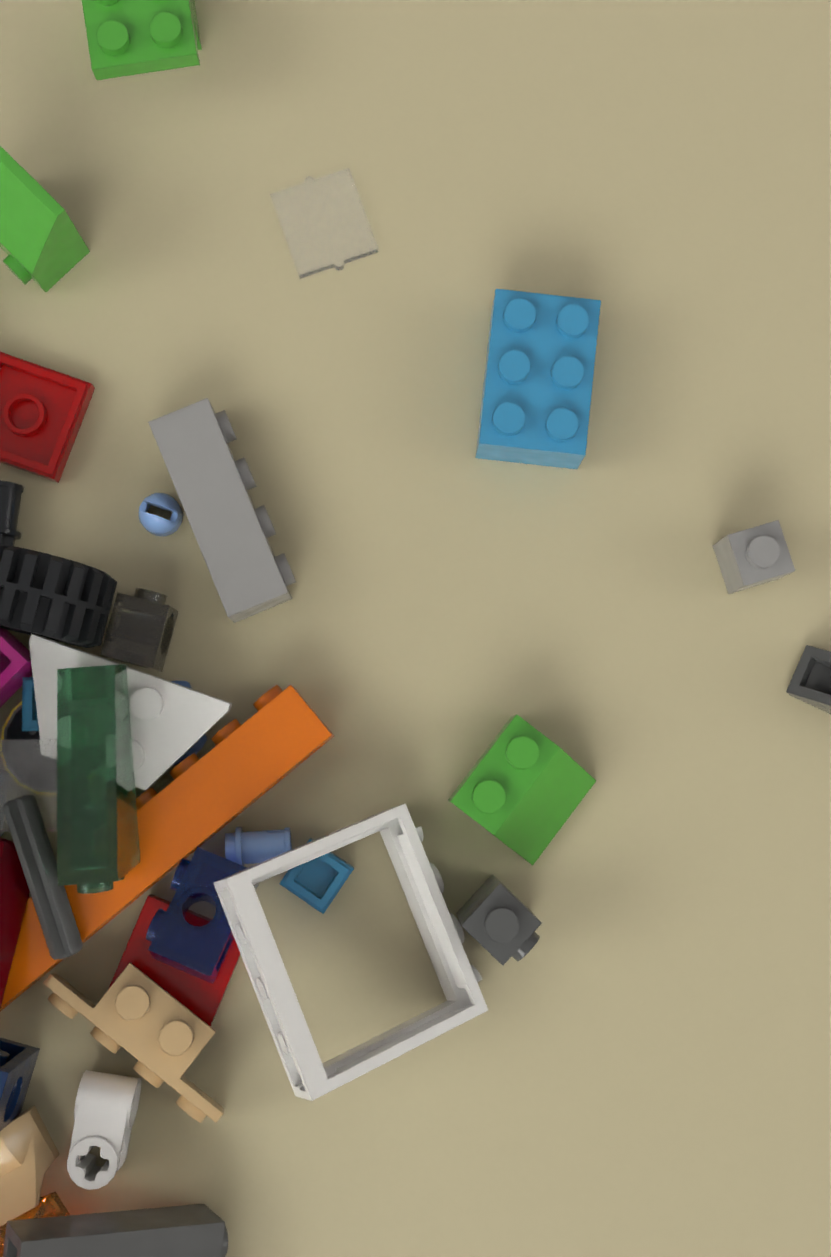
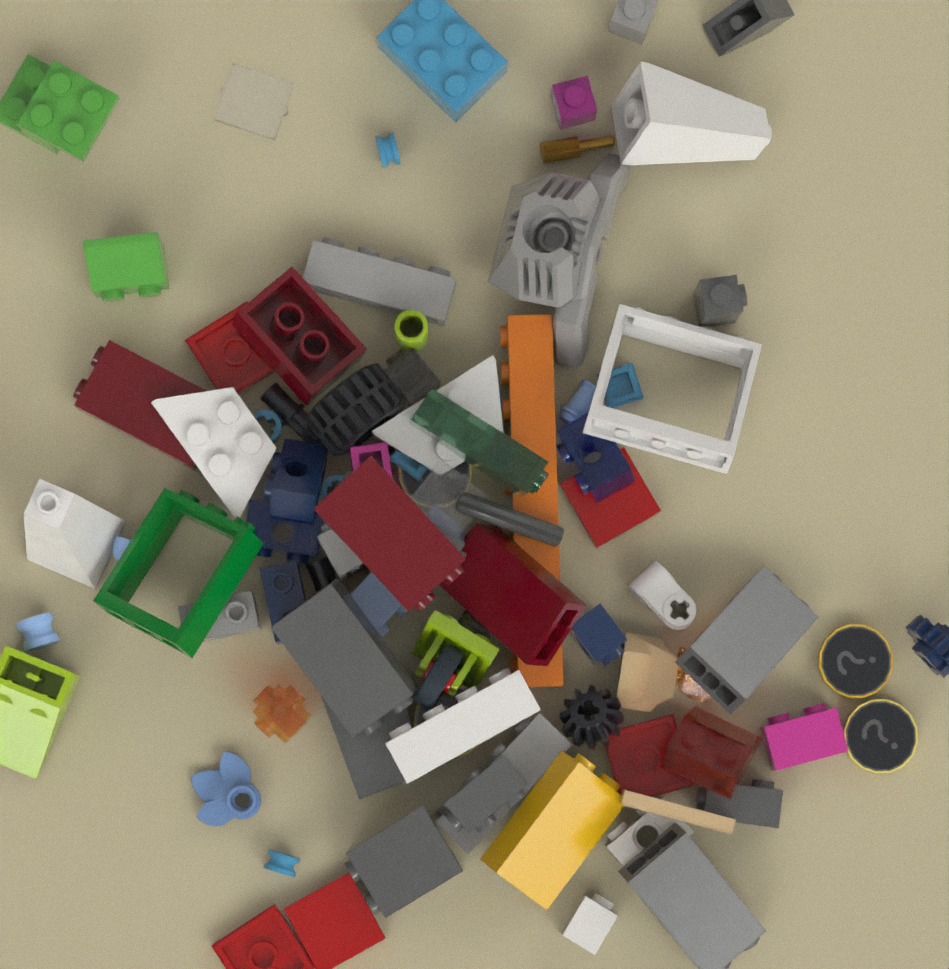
camera: 50 degrees left, 0 degrees up
(81, 466) = (299, 336): none -> dark red brick
(149, 1027) = (633, 533): tan bracket -> none
(158, 525) = (356, 325): light blue hinge -> none
(175, 576) = (411, 317): none -> lime piece
(381, 405) = (388, 150): none -> dark azure bush
(412, 676) = (553, 245): none -> light grey helmet
(522, 789) = (659, 238): bright green slope -> none
(548, 607) = (571, 147): none -> pearl gold axle
(600, 568) = (573, 102): none -> magenta brick
(677, 707) = (681, 121): none -> white slope

